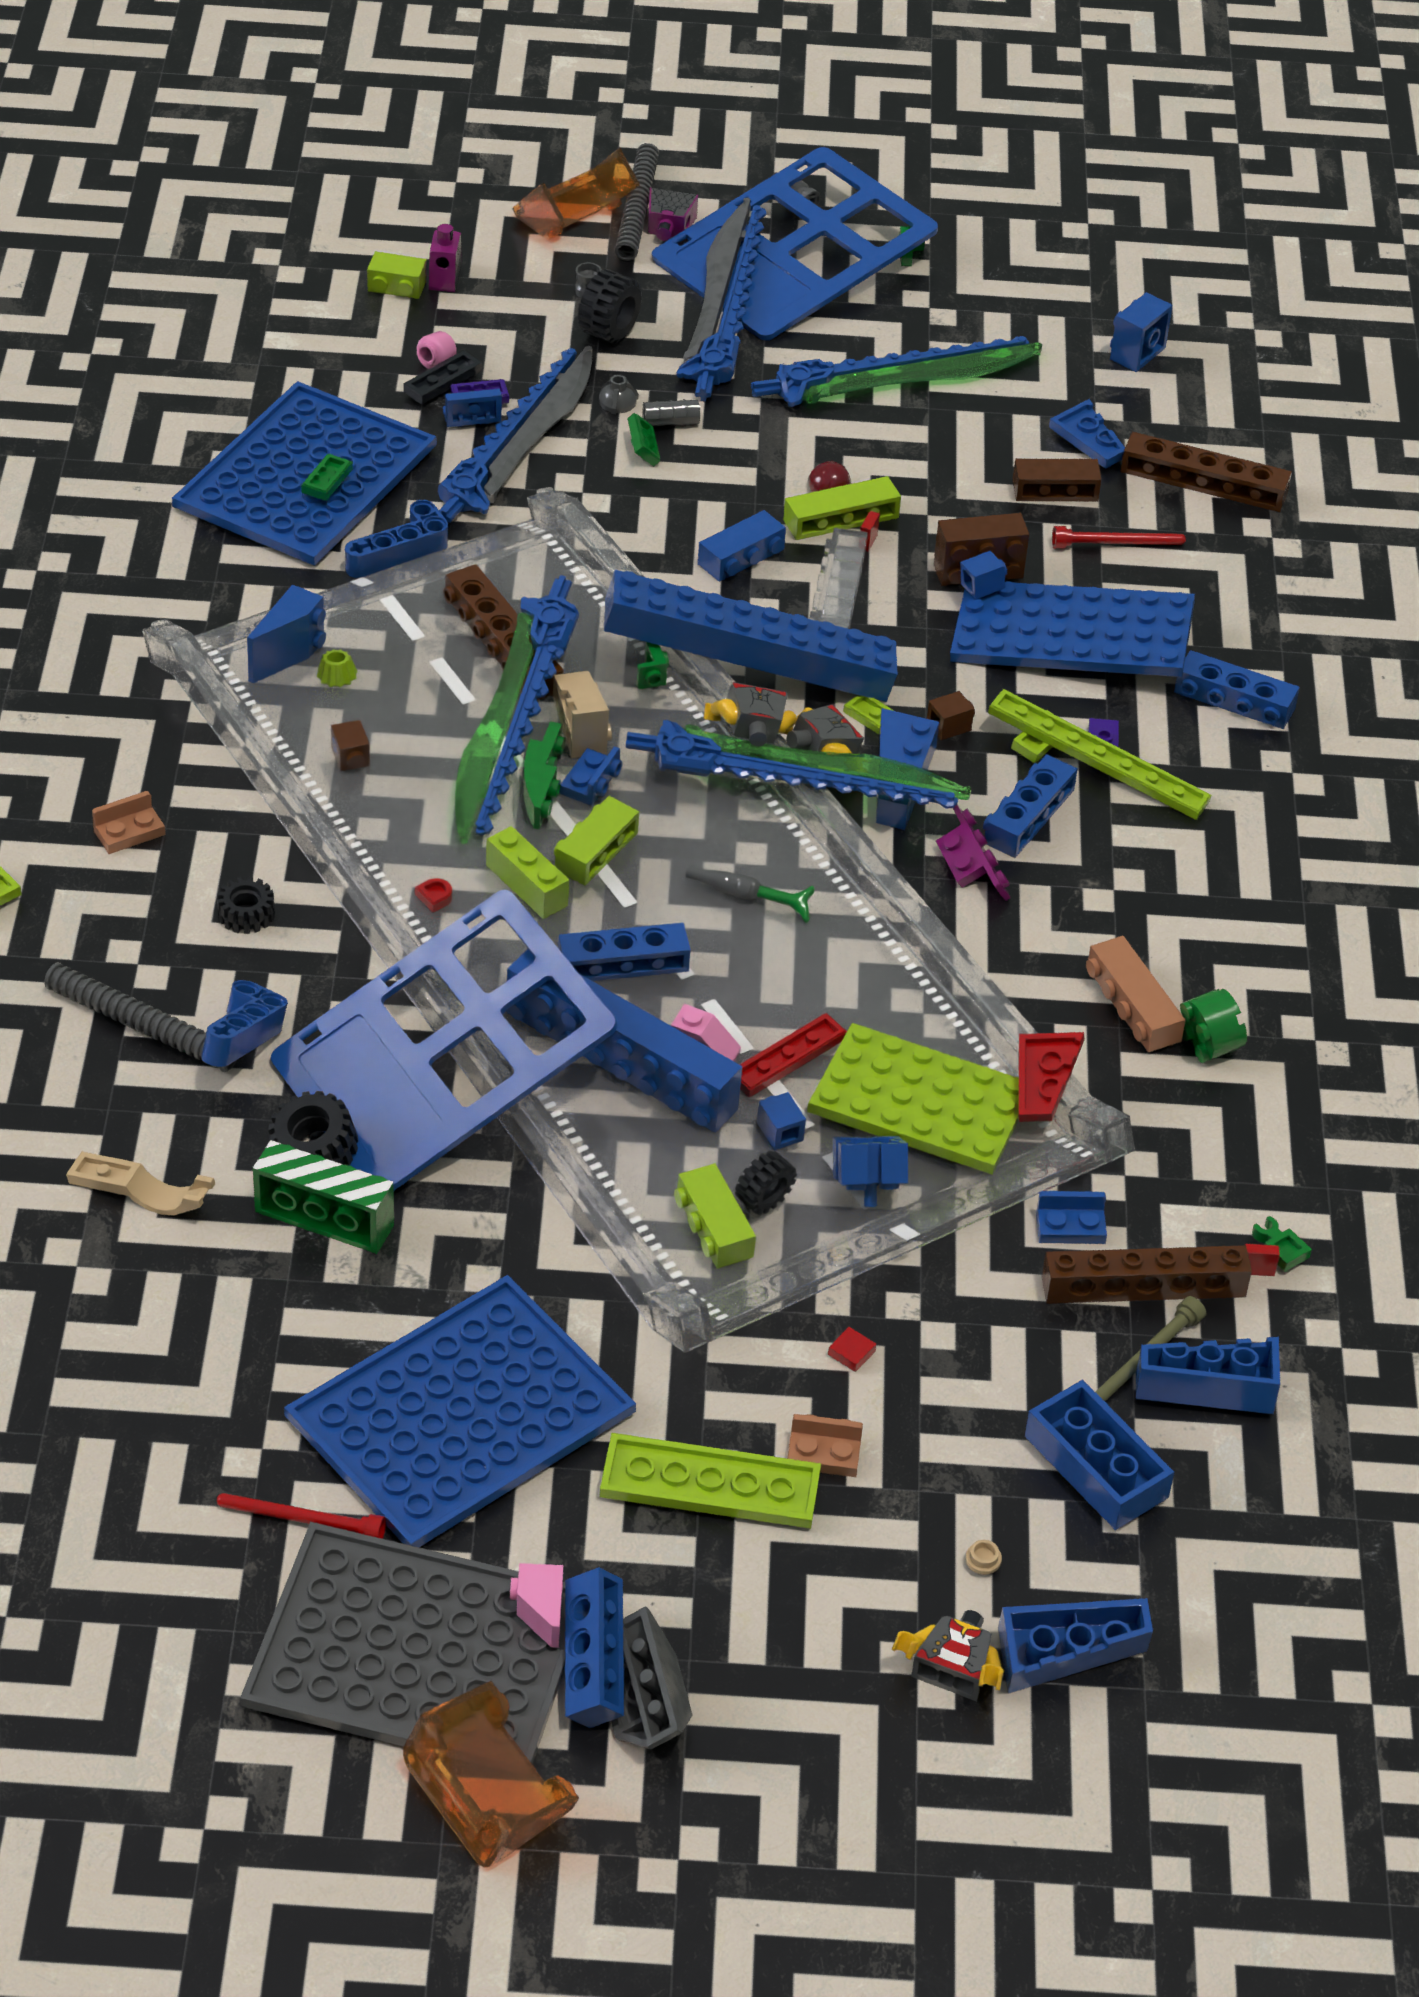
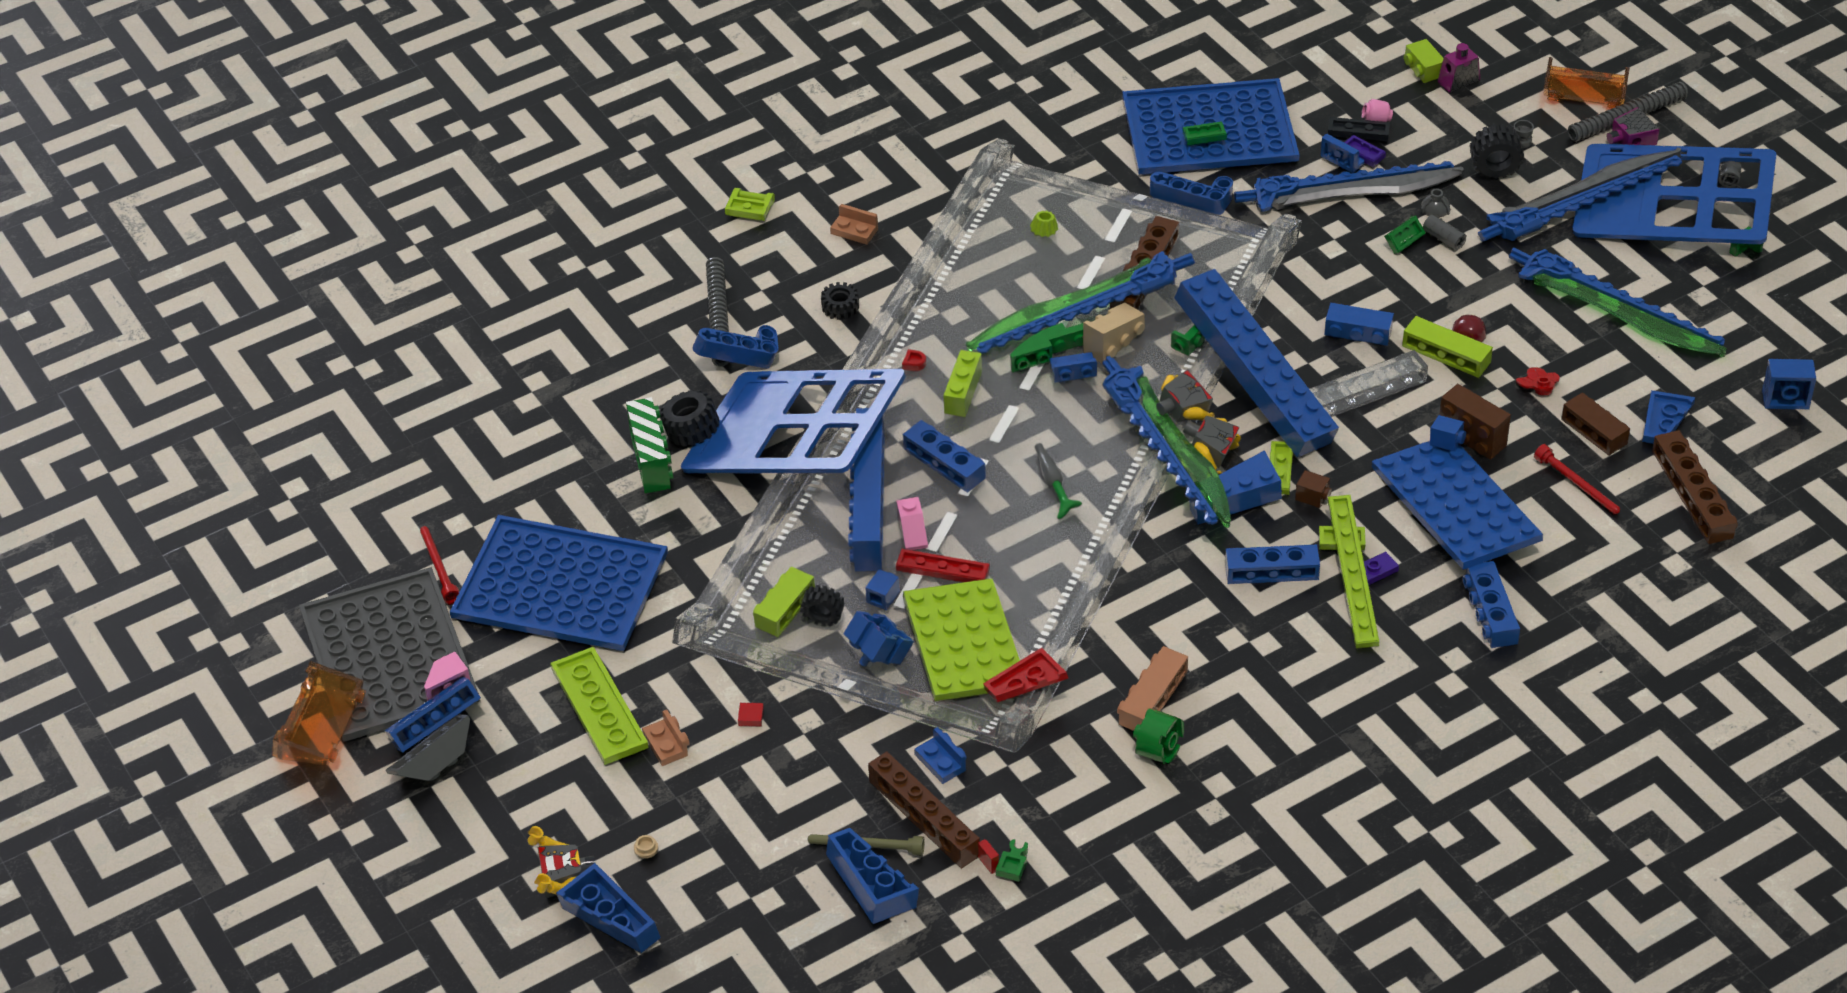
camera: 60 degrees right, 0 degrees up
(134, 1181) = (601, 376): tan piece -> none
(286, 634) = (1032, 185): blue slope -> none
(350, 745) = (985, 262): reddish brown brick -> none
(596, 840) = (1020, 396): lime brick -> none
(871, 526) = (1440, 369): red tile -> none
(953, 481) = (1539, 380): none -> red plate
(966, 854) = (1202, 561): magenta bracket -> none
(1099, 1454) = (758, 855): blue brick -> none

